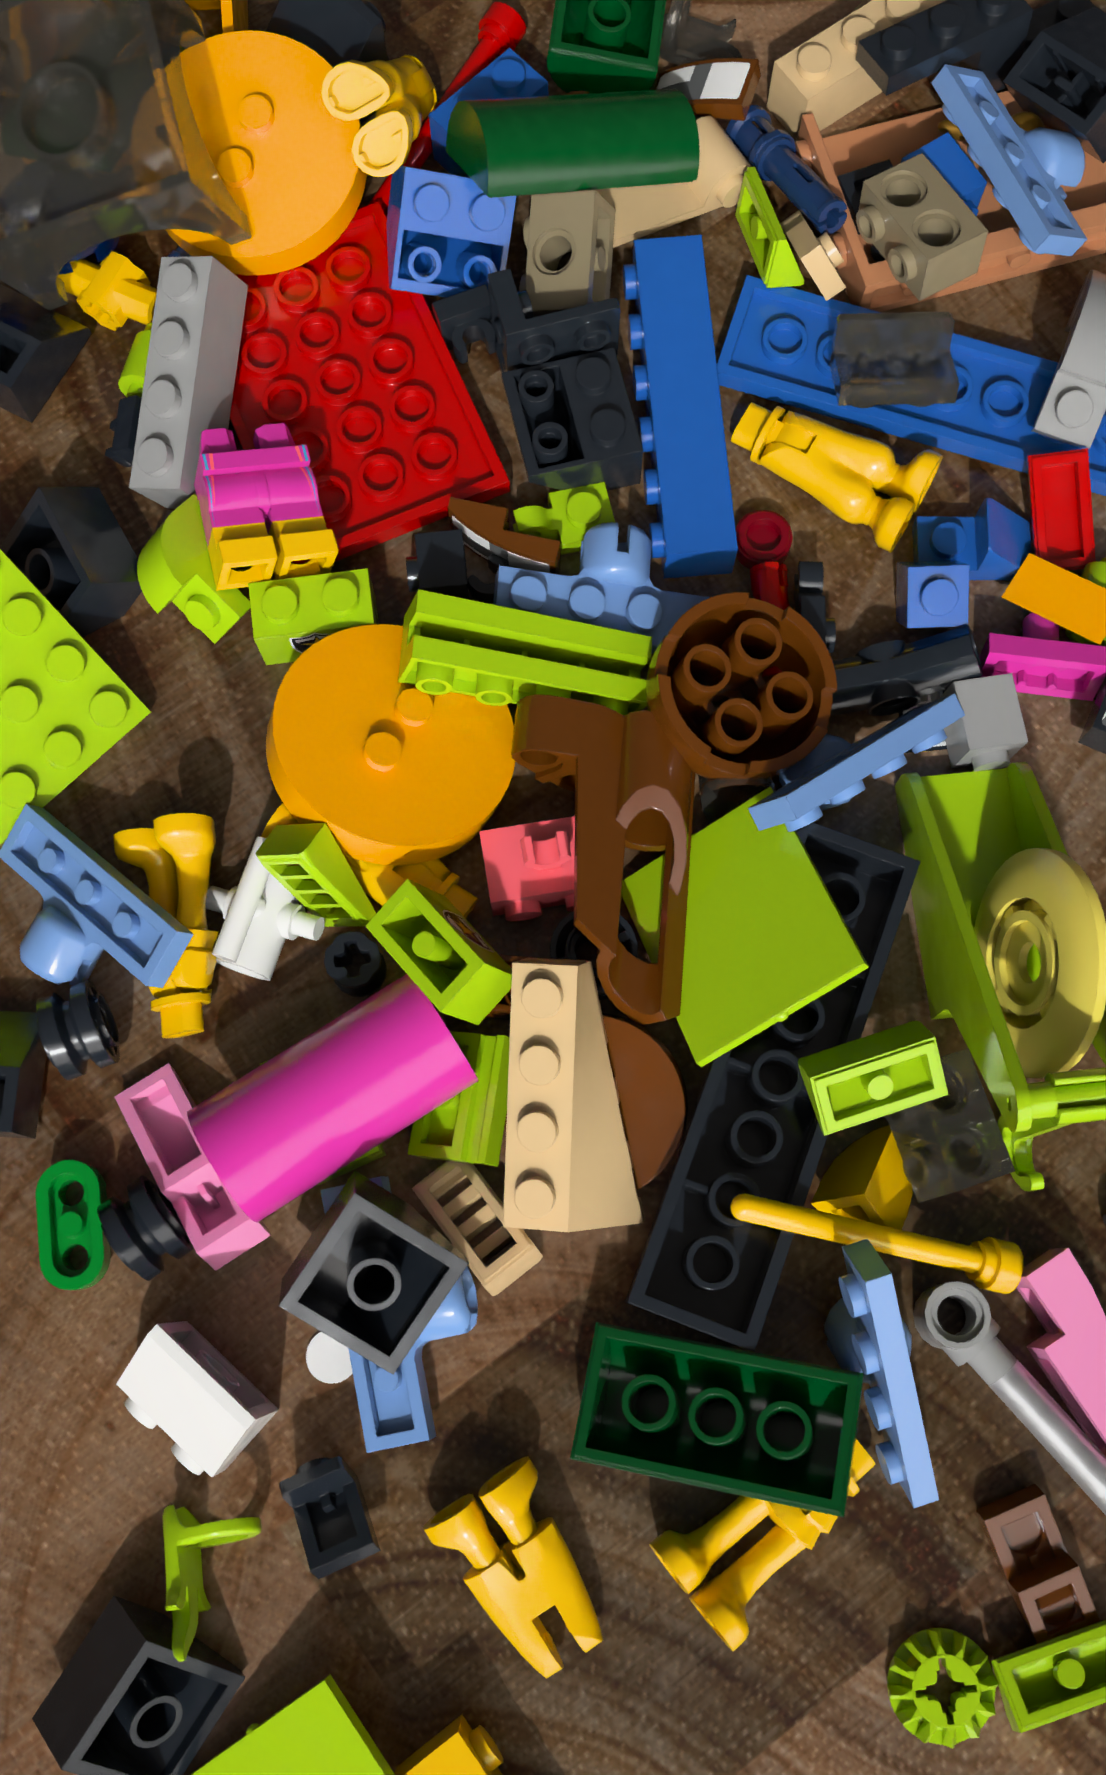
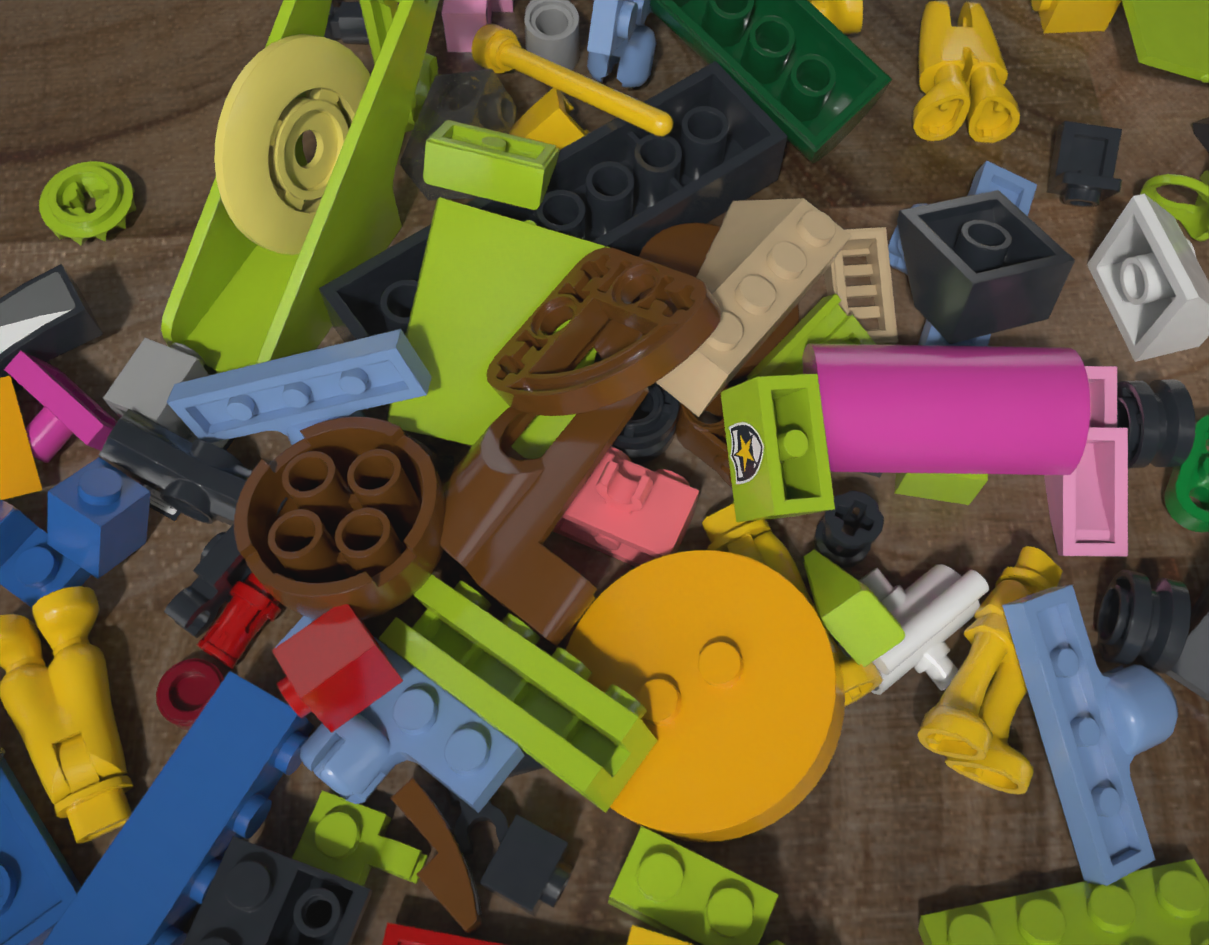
camera: 150 degrees left, 10 degrees down
(658, 584) = (334, 668): none -> red brick
(671, 974) = (597, 289): none -> reddish brown beam

